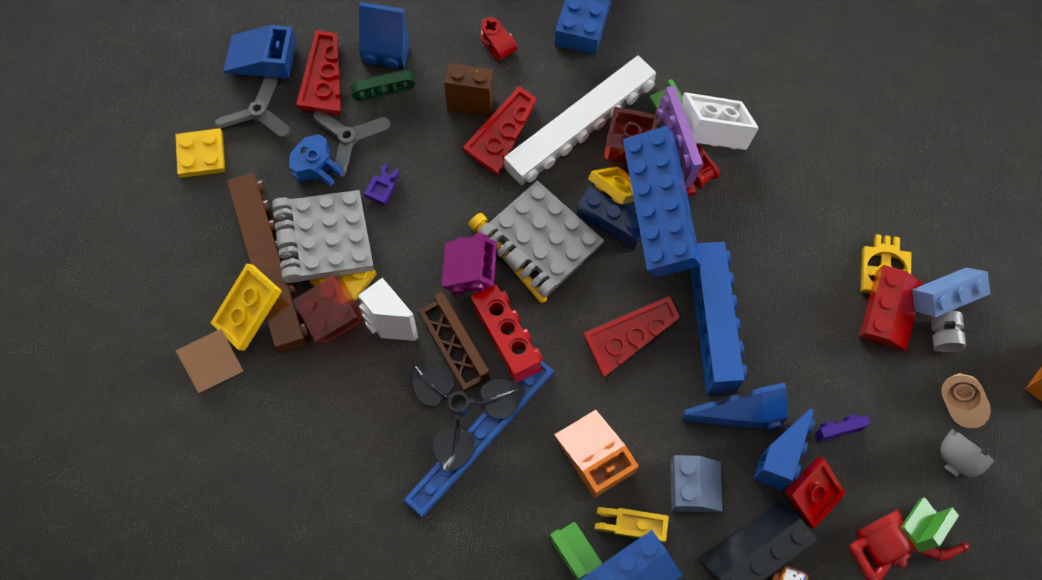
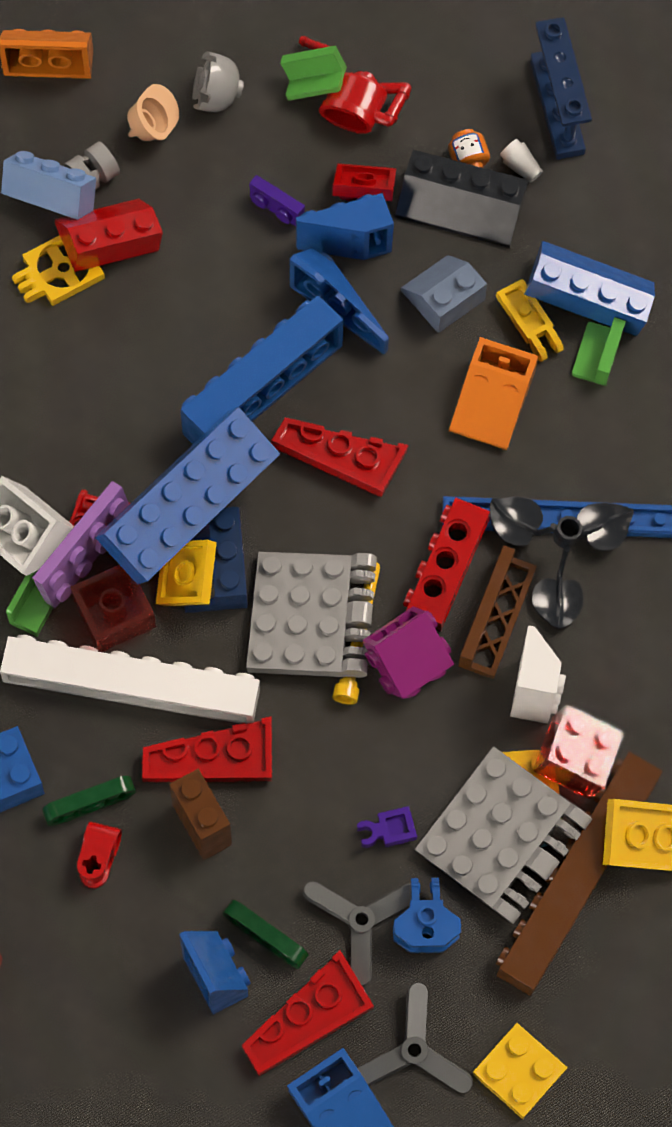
camera: 130 degrees left, 0 degrees up
(529, 56) = (88, 800): none -> dark green beam

